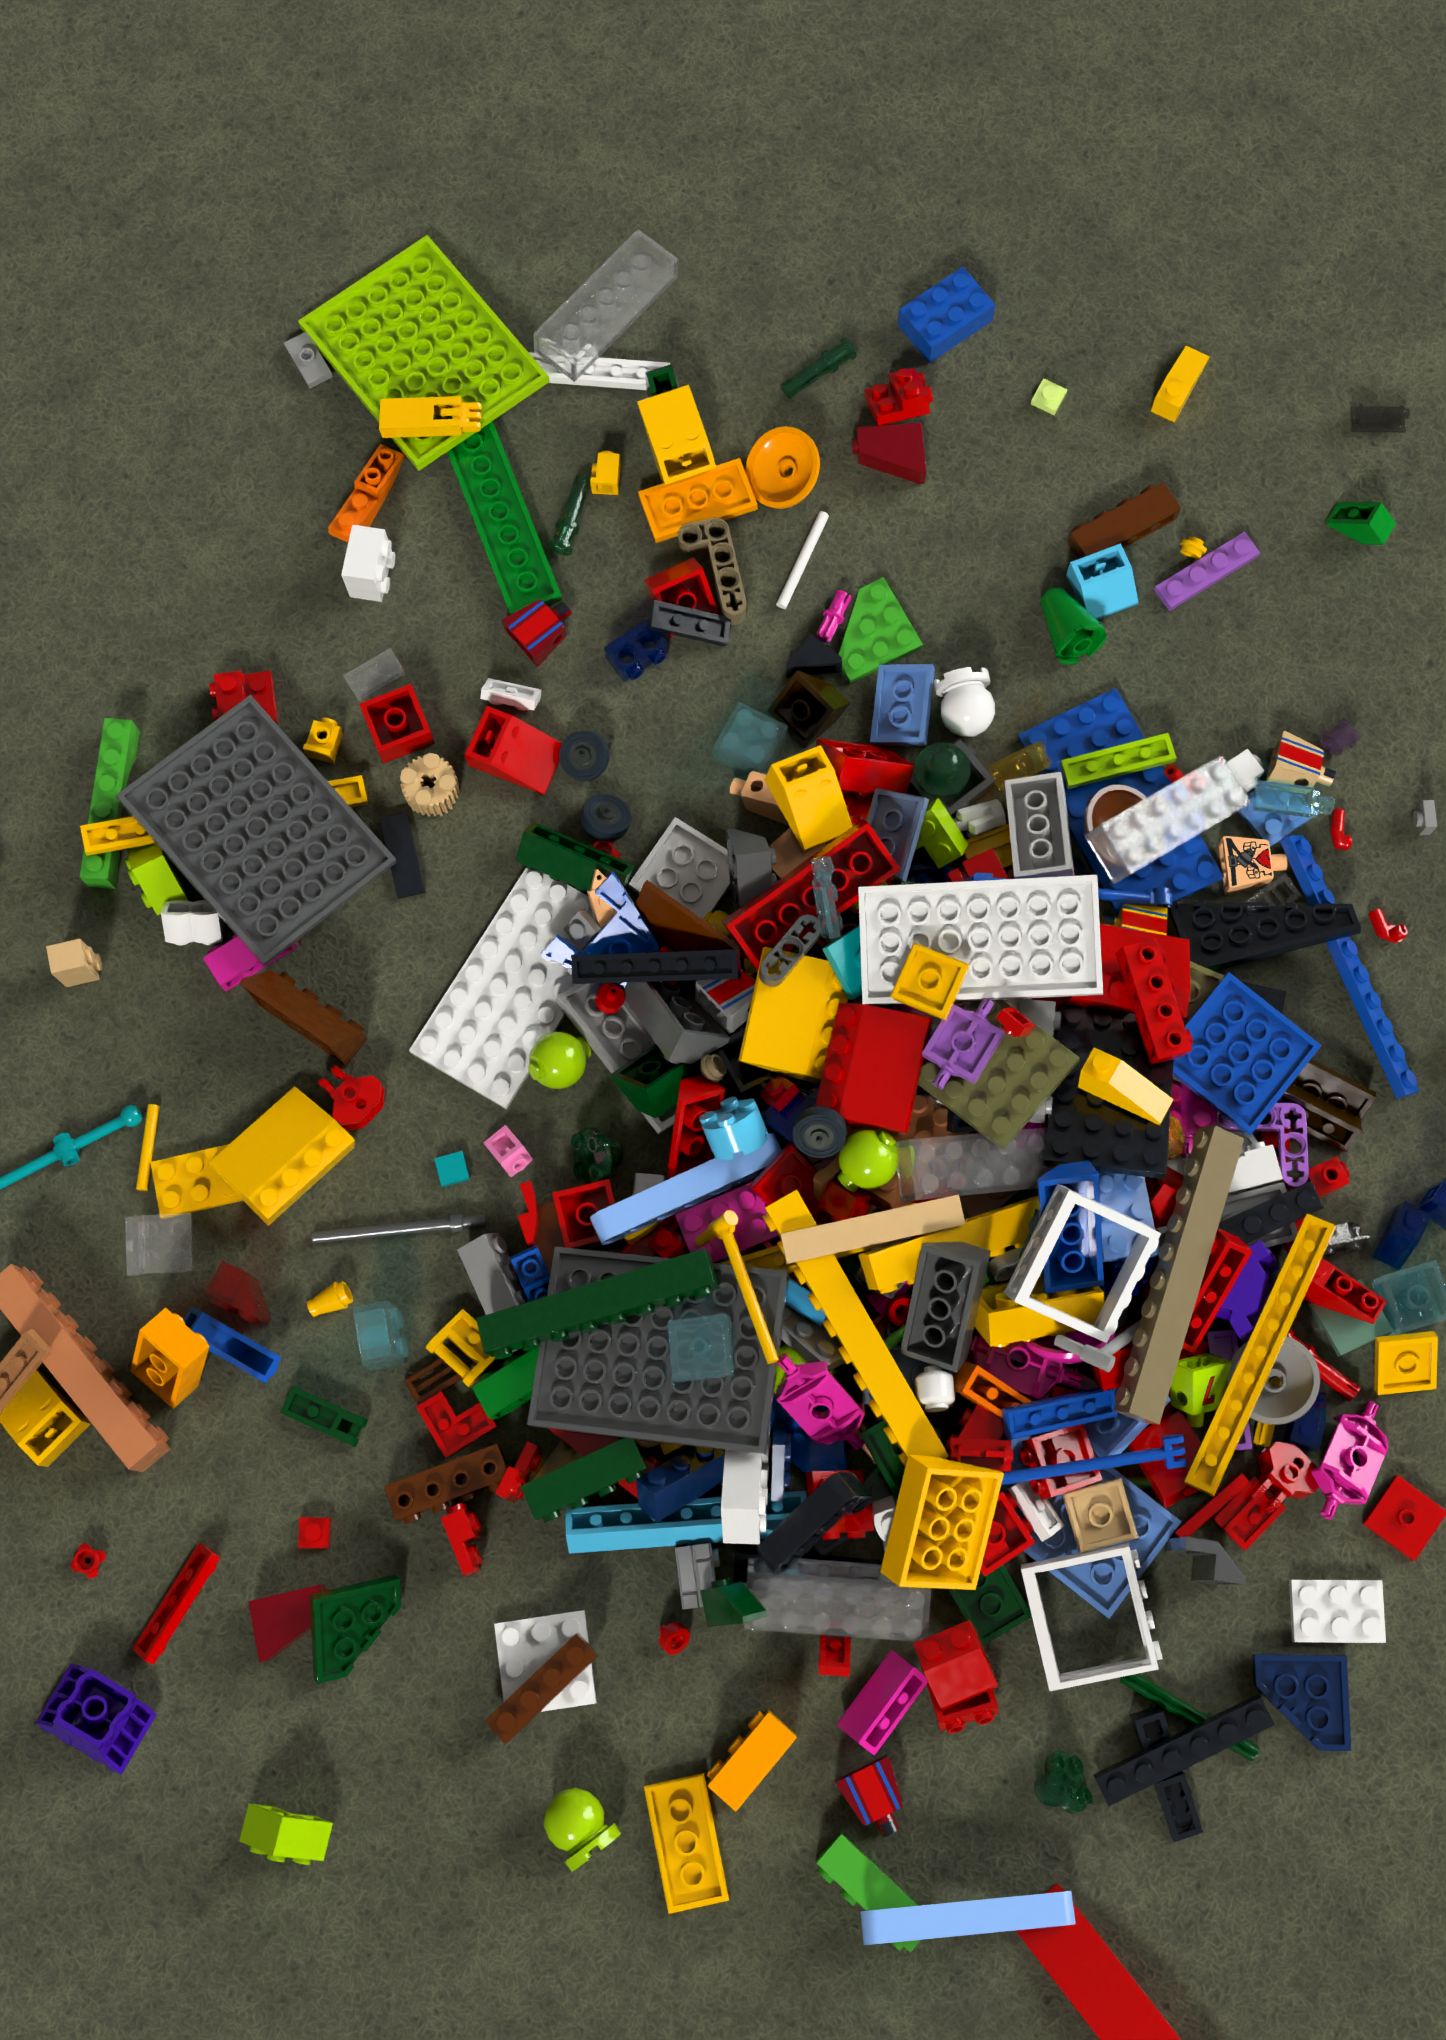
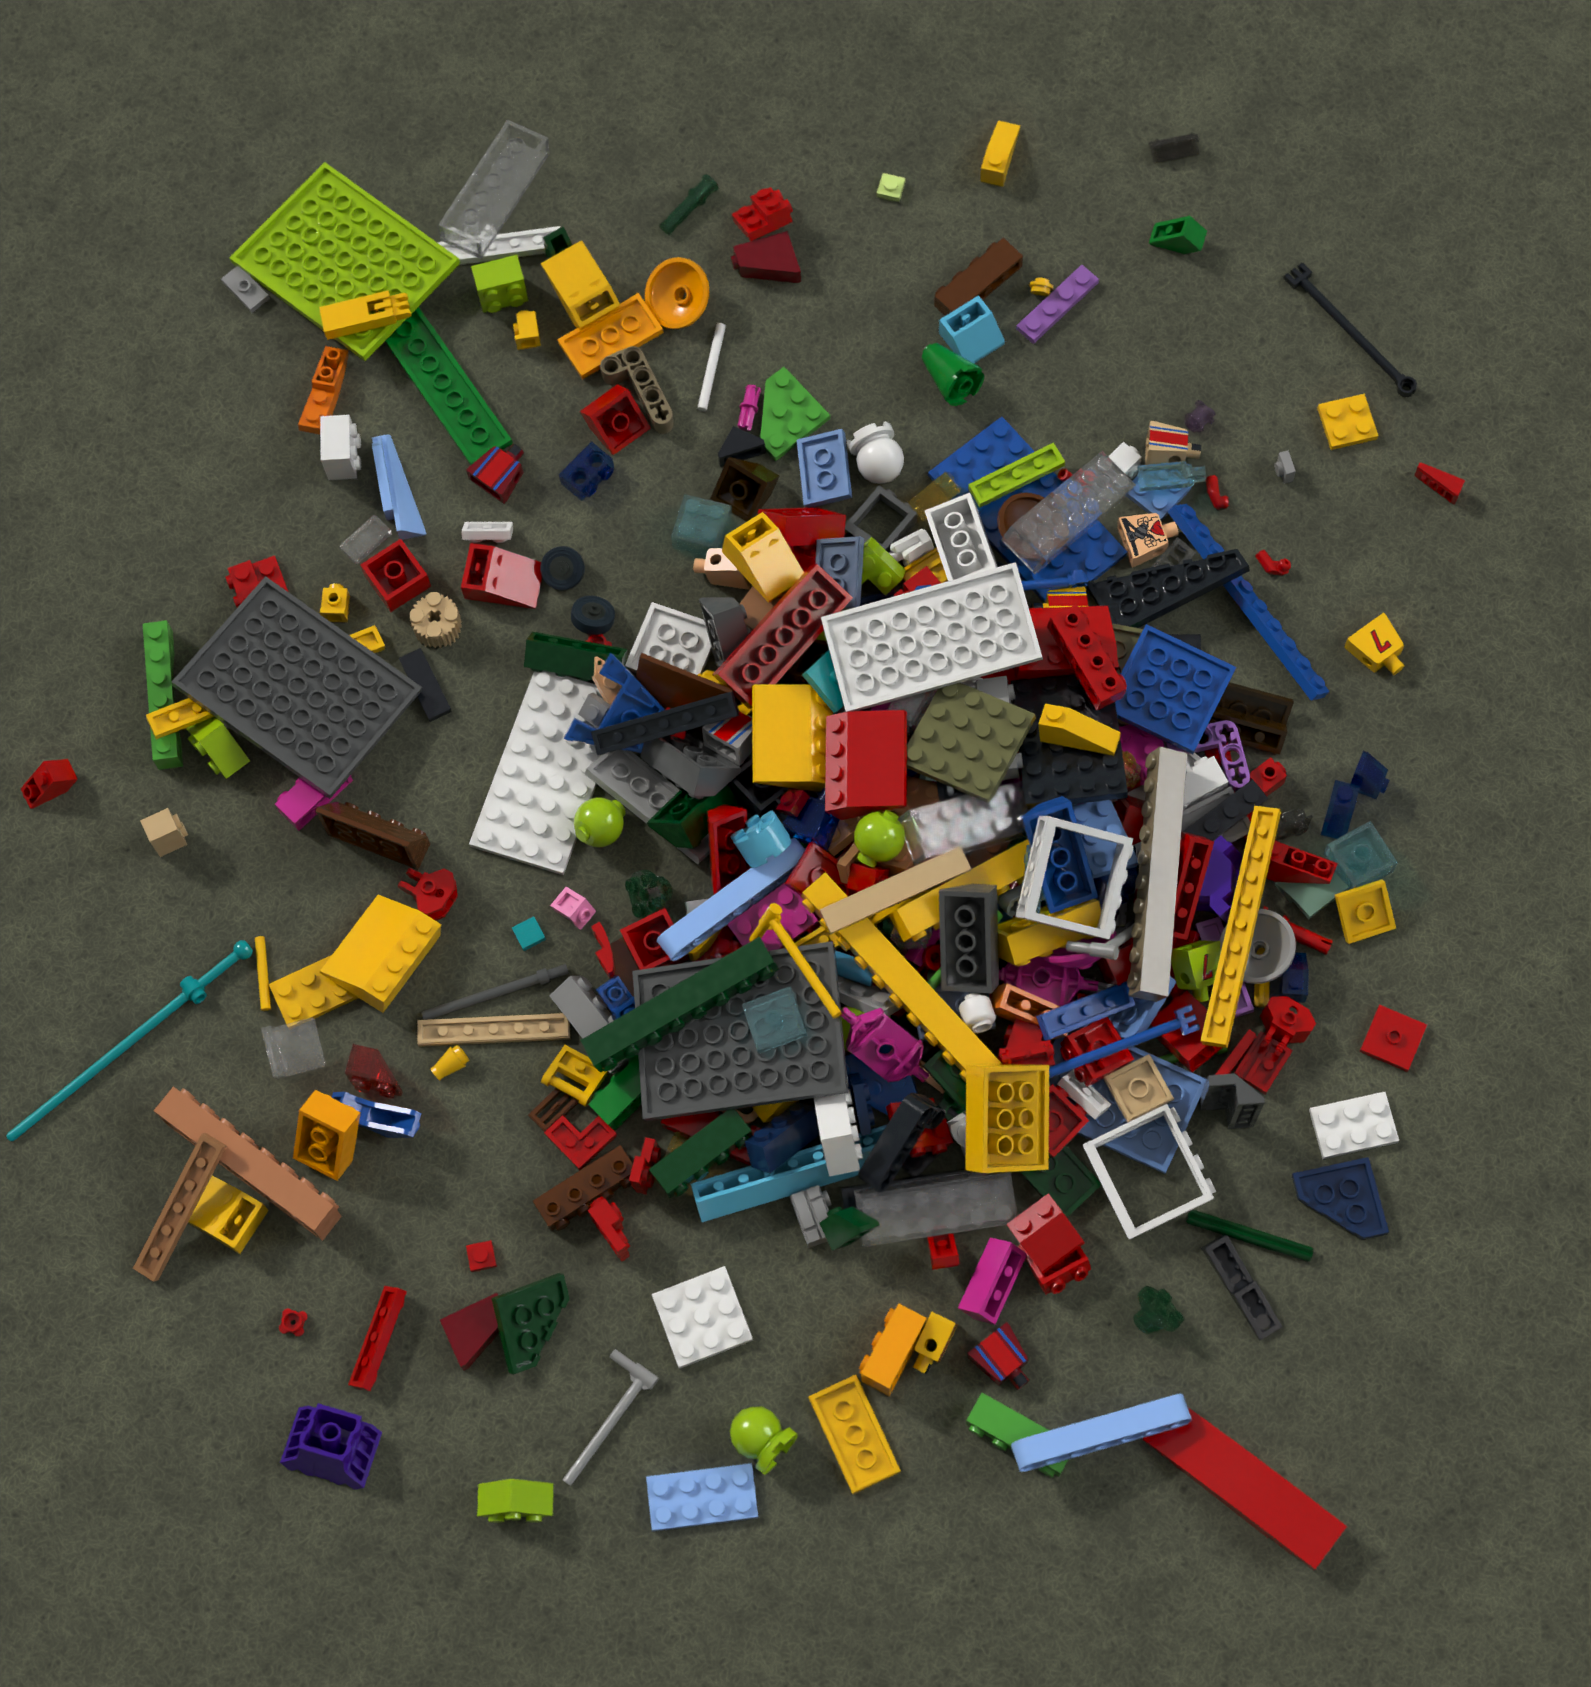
camera: 10 degrees left, 5 degrees down
(191, 922) = (258, 777): white brick -> none
(322, 1415) = (466, 1158): dark green plate -> none
(380, 1335) = (498, 1075): clear light blue brick -> none
(386, 1271) = (492, 1029): none -> tan tile
(419, 624) = (395, 490): none -> light blue wedge
(460, 1720) = (641, 1379): none -> light grey bar
(497, 1876) = (702, 1497): none -> light blue plate
(541, 1688) = (704, 1331): reddish brown brick -> none
(568, 525) = (503, 380): clear green pin -> none
(587, 415) = (500, 284): none -> lime brick
(610, 998) = (631, 762): red tile -> none
(673, 1637) = (805, 1270): red tile -> none
(689, 623) = (627, 439): black plate -> none
(713, 1067) = (732, 795): dark tan plate -> none
(789, 963) = (775, 672): dark grey beam -> none
(809, 1750) = (941, 1331): none -> yellow torso
(819, 1132) = (833, 822): black wheel -> none
(825, 897) = (795, 631): clear light blue hinge -> none
(929, 981) = (897, 679): yellow plate -> none
(942, 770) = (869, 513): clear green plate -> none
(946, 314) = (787, 137): blue brick -> none
(963, 1044) = (936, 723): medium lavender plate -> none
(1014, 1022) = (975, 697): red plate -> none
(1183, 1749) = (1250, 1262): black plate -> none
(1338, 1474) = (1329, 1012): dark pink plate -> none

